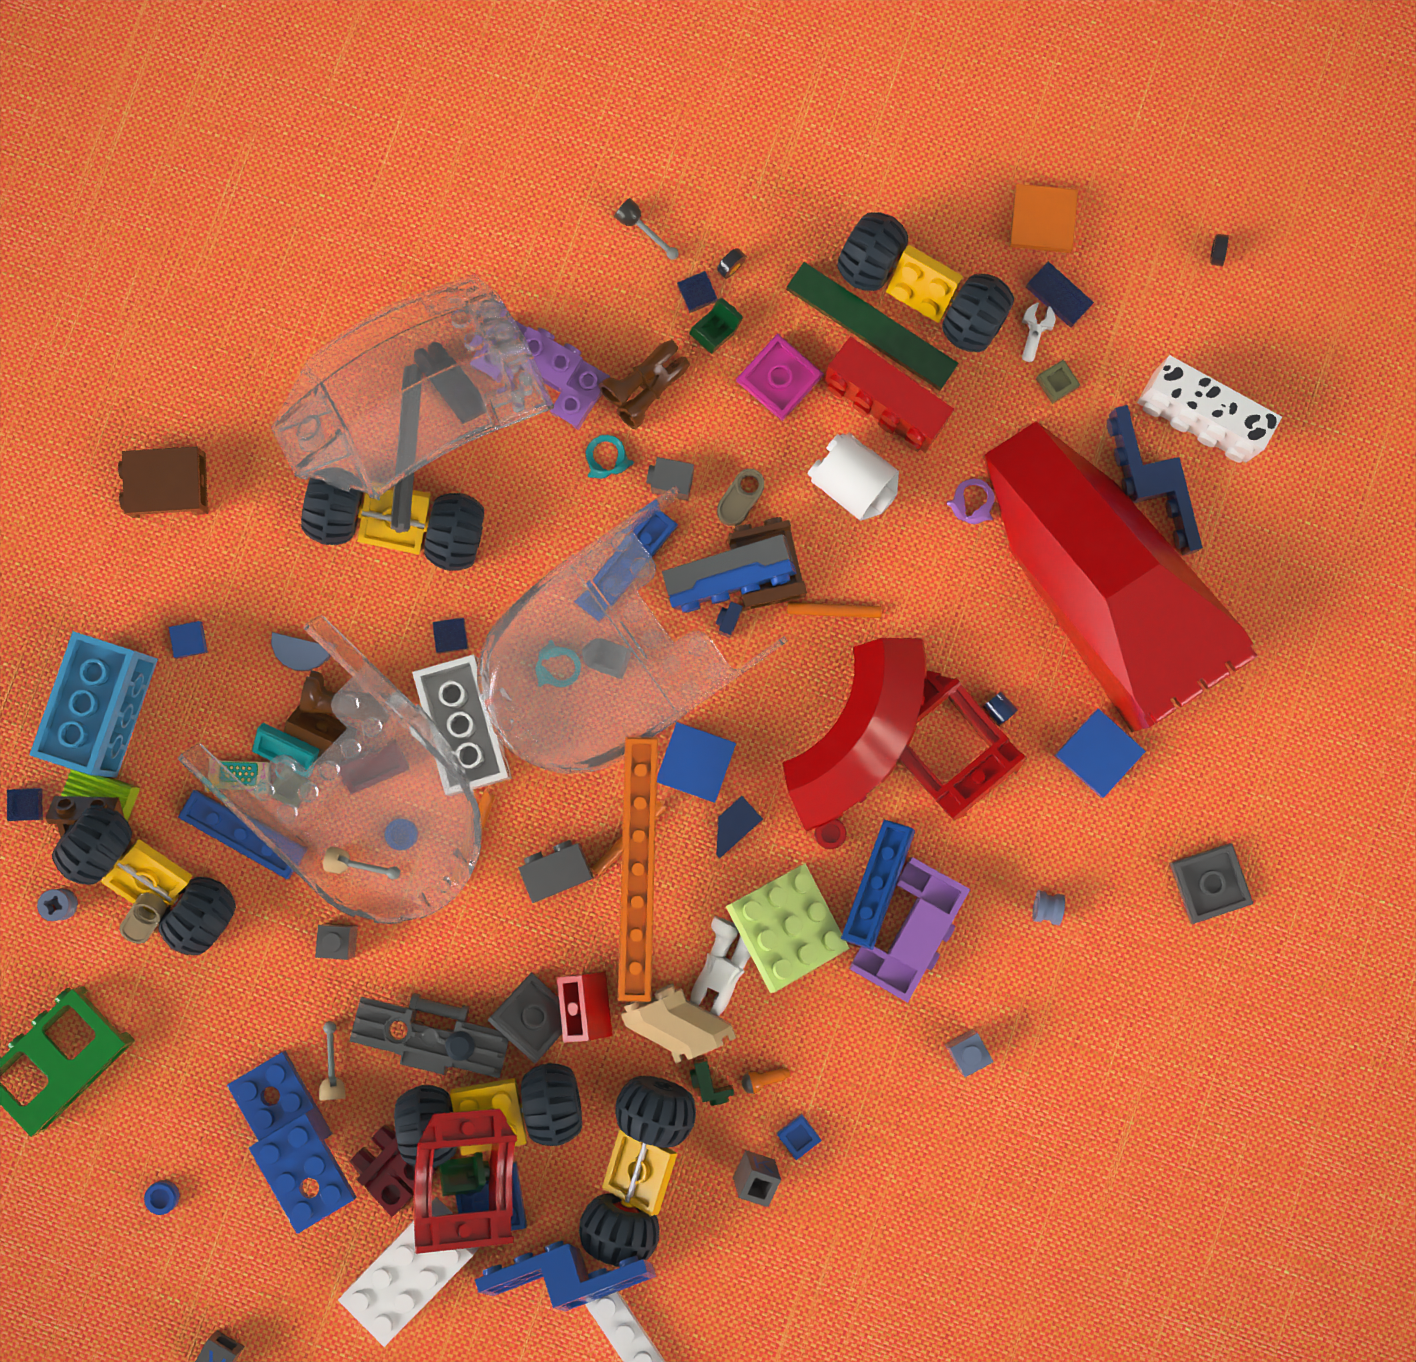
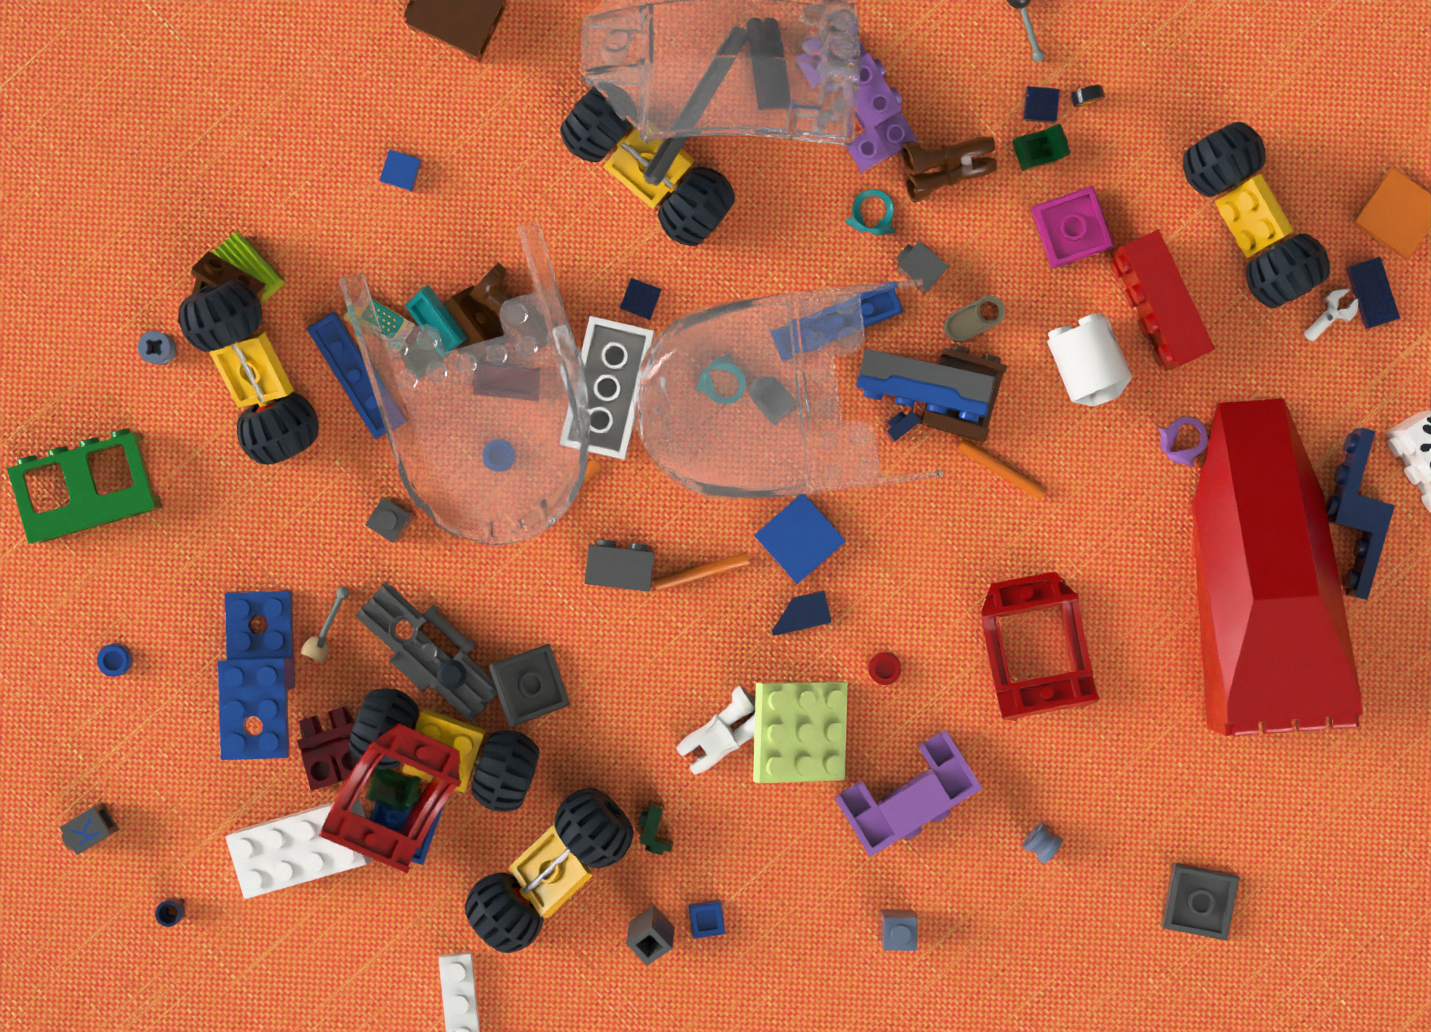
camera: 25 degrees right, 5 degrees up
(24, 804) = (173, 240): clear blue tile -> none
(93, 706) = (285, 187): dark azure brick -> none
(141, 923) = (223, 407): dark tan piece -> none
(298, 653) = (495, 239): sand blue tile -> none
(338, 860) = (431, 449): hinge -> none
(564, 1276) = (435, 926): blue bracket -> none
(584, 1007) = (580, 701): red brick -> none
(637, 869) = (697, 607): orange tile -> none
(677, 1023) = (654, 761): tan brick -> none
(754, 1081) = (693, 849): orange piece -> none
(866, 736) = (969, 600): red brick -> none
(872, 326) = (1183, 226): dark green tile -> none
(878, 884) = (902, 738): blue tile -> none
(1000, 708) = (1101, 642): dark blue hose -> none
(1058, 381) = (1324, 372): olive tile -> none
(1100, 753) = (1167, 731): blue tile -> none

